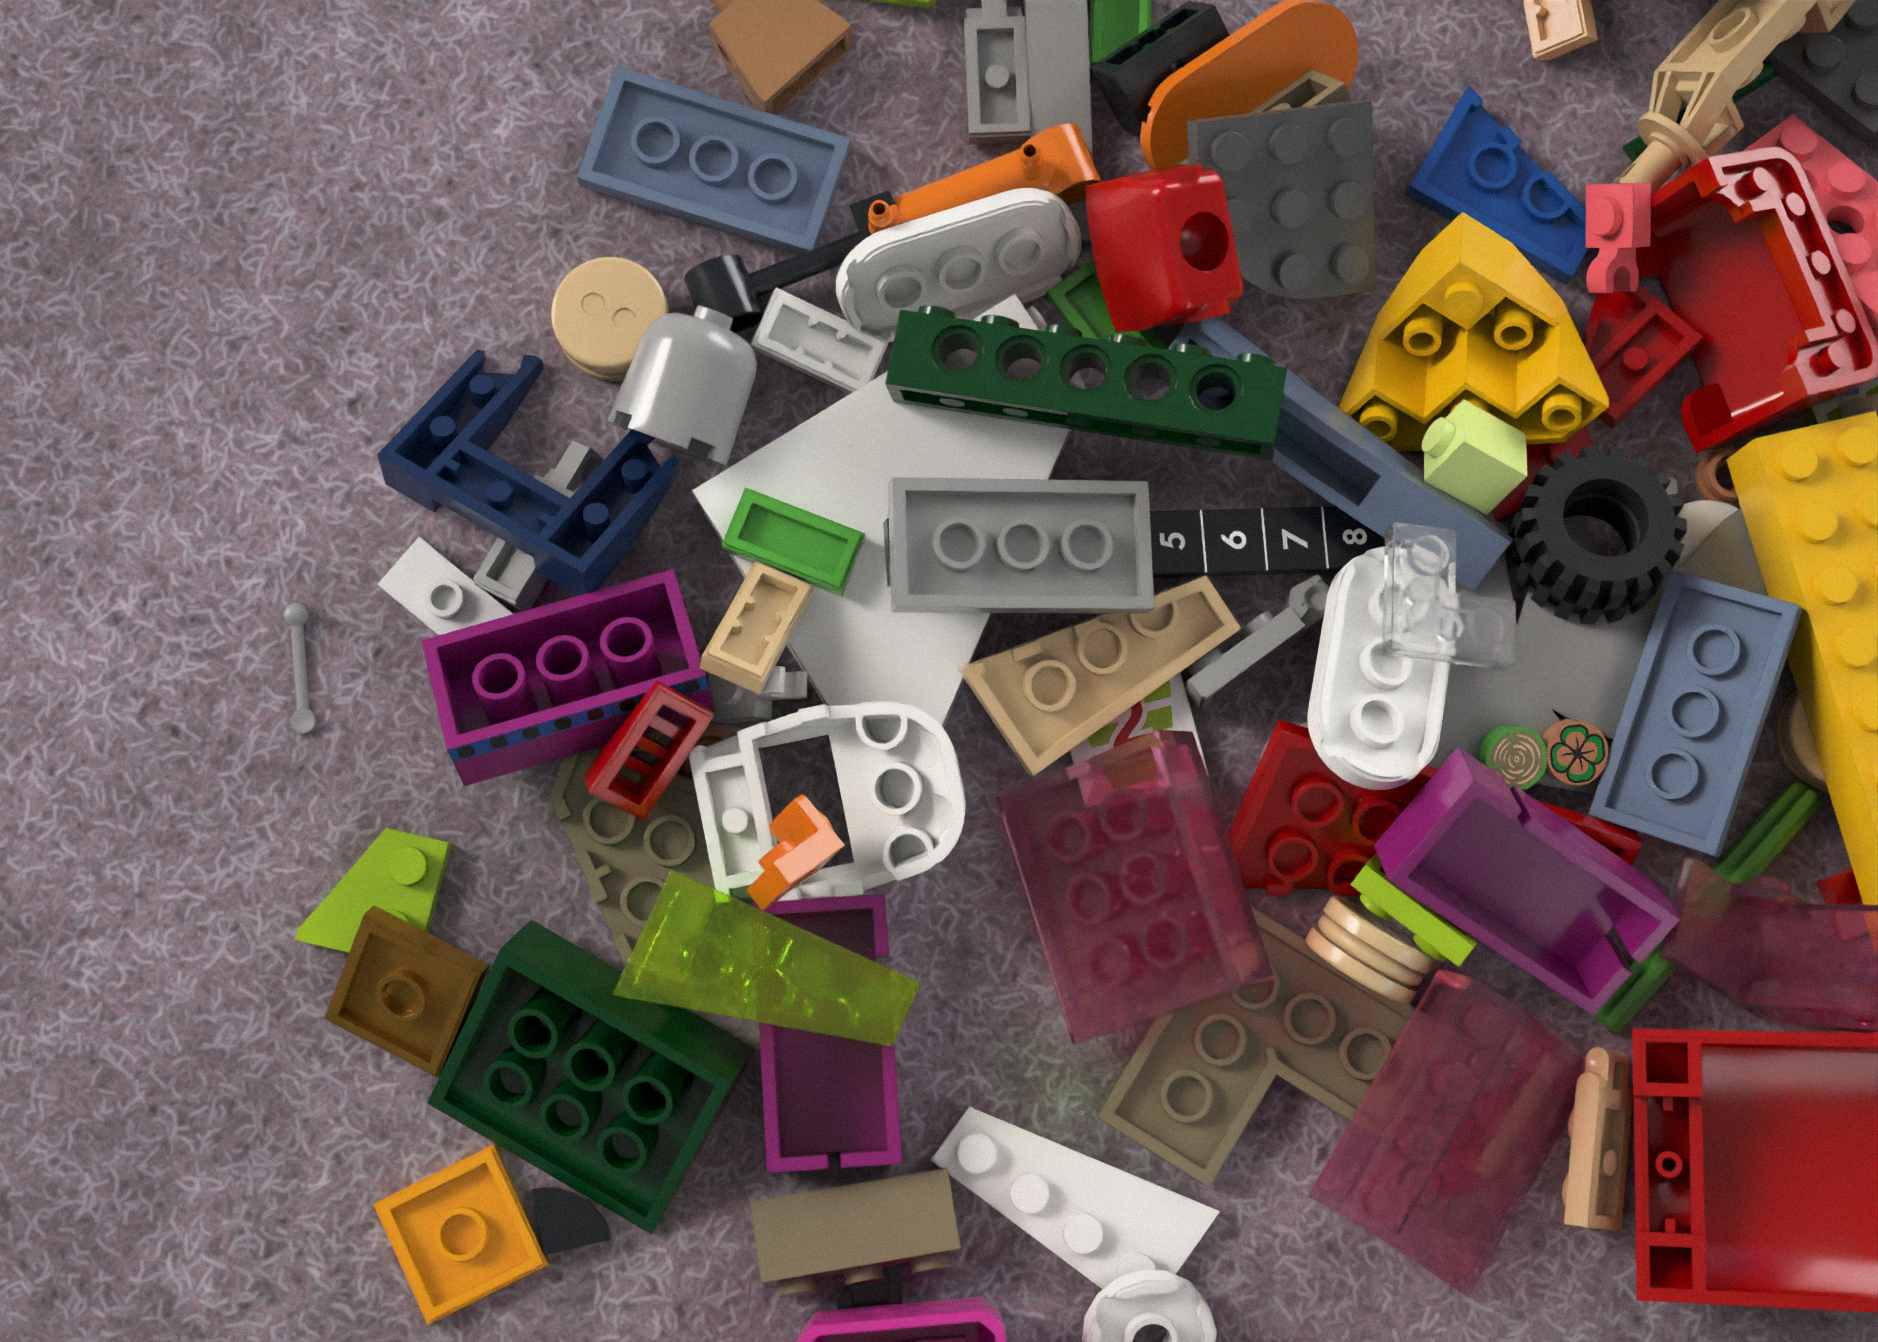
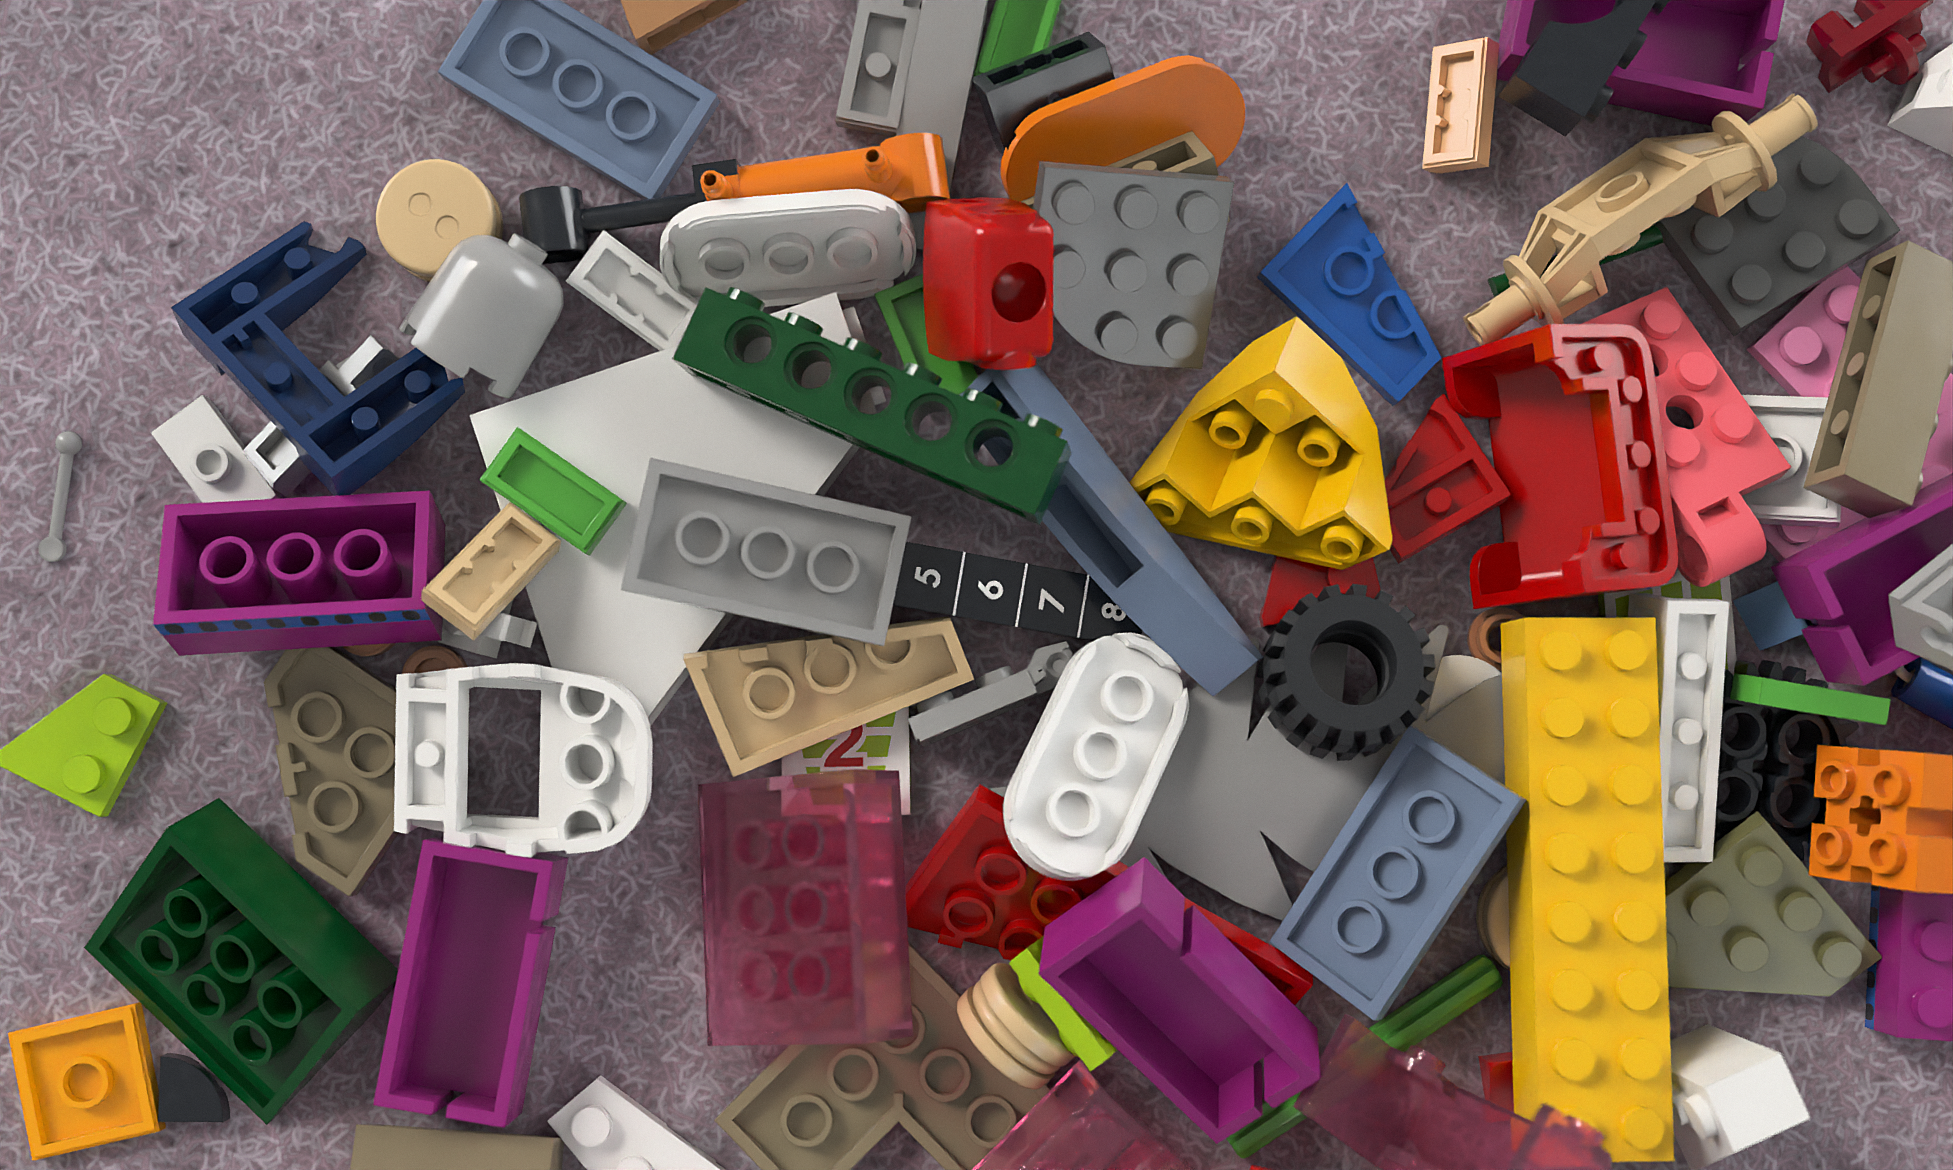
camera: 15 degrees right, 5 degrees up
(405, 990) = (80, 837): pearl gold plate -> none
(641, 796) = (330, 700): red slope -> none
(745, 964) = (402, 909): clear neon green wedge -> none
(803, 849) = (479, 806): orange bracket -> none
(1426, 615) = (1151, 712): clear plate -> none
(1474, 457) = (1245, 565): yellowish green brick -> none
(1514, 755) = (1207, 870): tile -> none
(1574, 752) = (1269, 878): tile -> none
(1616, 224) = (1454, 365): coral plate -> none

